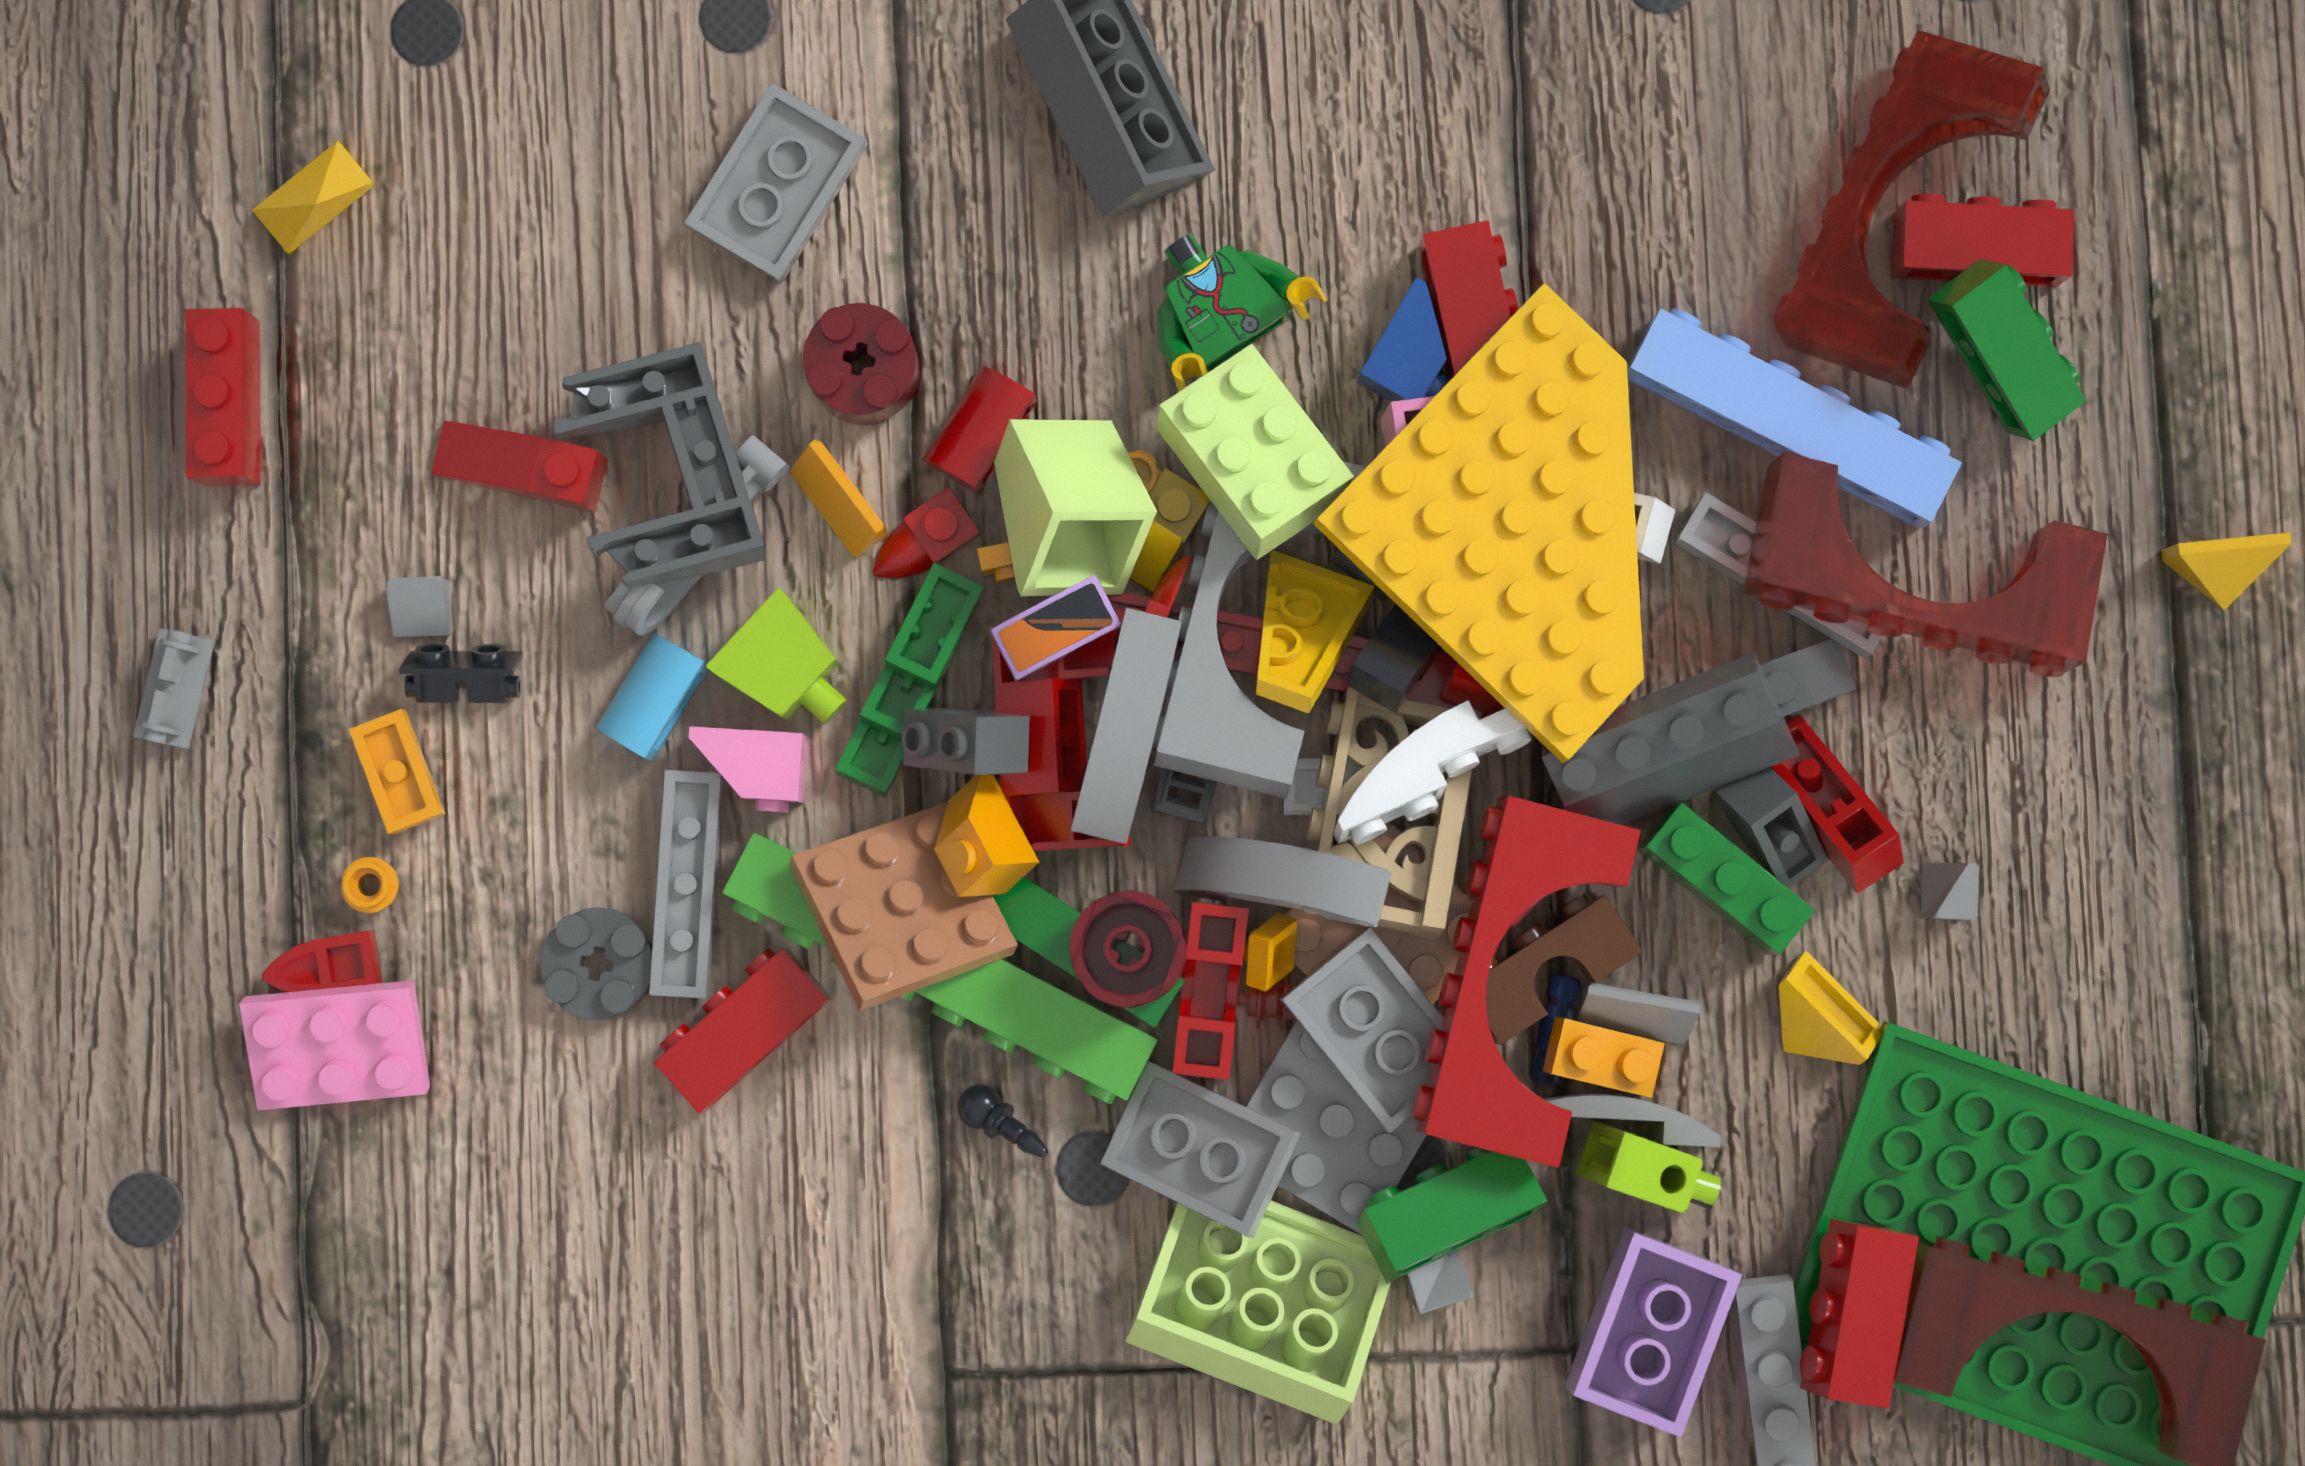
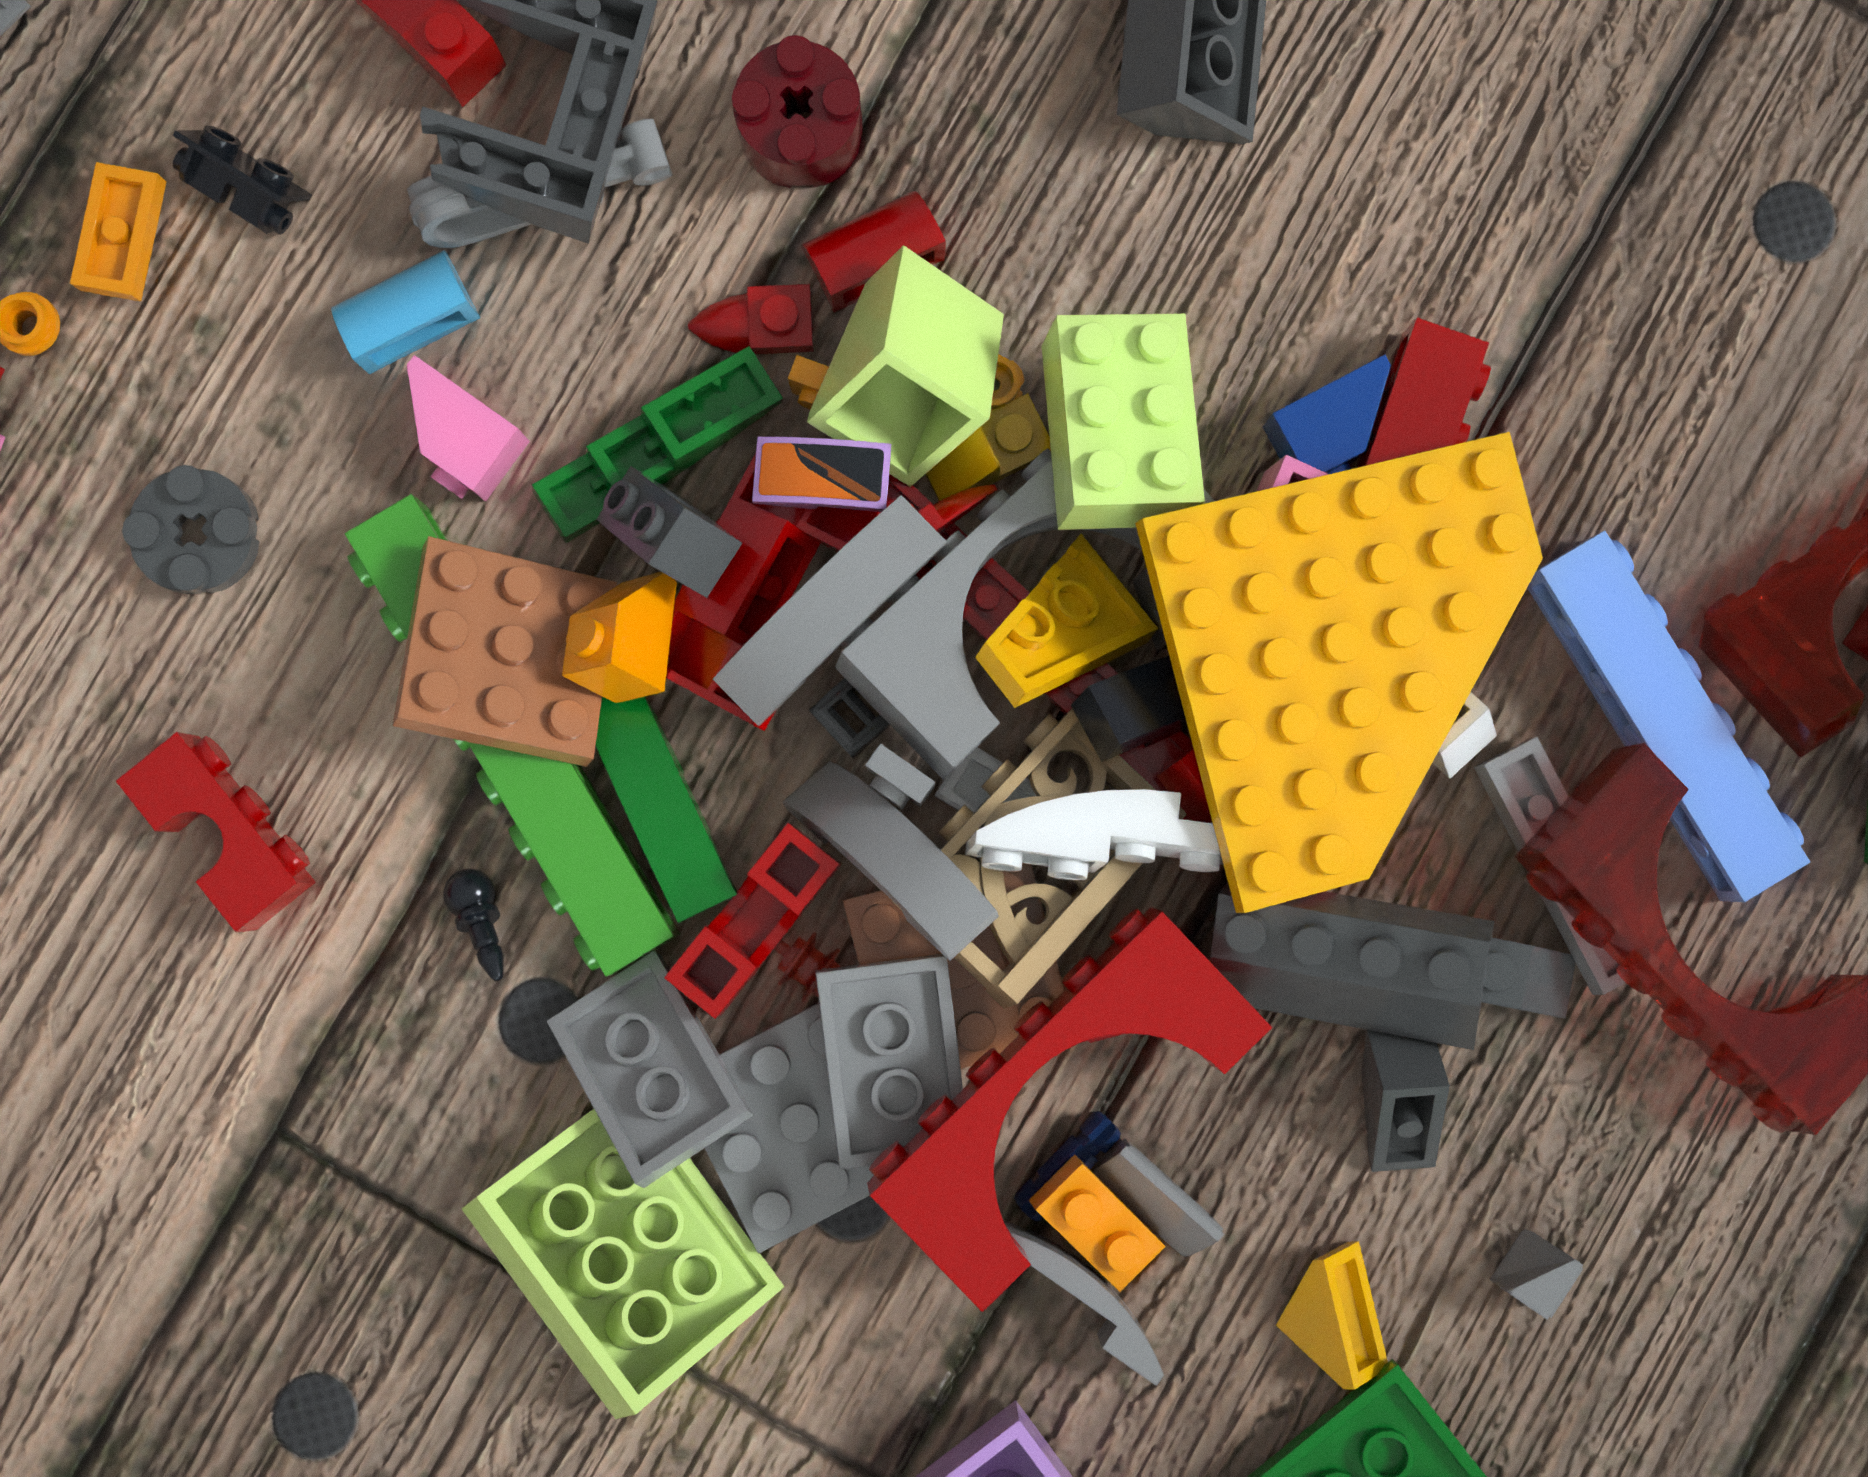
camera: 30 degrees right, 0 degrees up
(419, 606) = (240, 90): light grey slope -> none
(686, 884) = (321, 508): light grey plate -> none
(741, 1028) = (285, 676): red brick -> none
(780, 662) = (544, 349): lime torso -> none
(812, 1186) = (256, 866): none -> red arch
(837, 499) = (698, 232): light orange slope -> none
(1114, 919) = (656, 828): dark red brick -> none
(1223, 305) = (1183, 266): green torso -> none
(1252, 819) = (898, 779): none -> light grey plate
(1271, 951) = (836, 919): light orange plate -> none
(1439, 1283) = (802, 1334): light grey slope -> none
(1448, 1210) = (849, 1280): green brick -> none
(1587, 935) = (1156, 1094): reddish brown arch -> none
(1646, 1169) = (1069, 1360): lime torso -> none
(1726, 879) = (1325, 1126): green brick -> none
(1843, 816) = (1479, 1143): red slope -> none

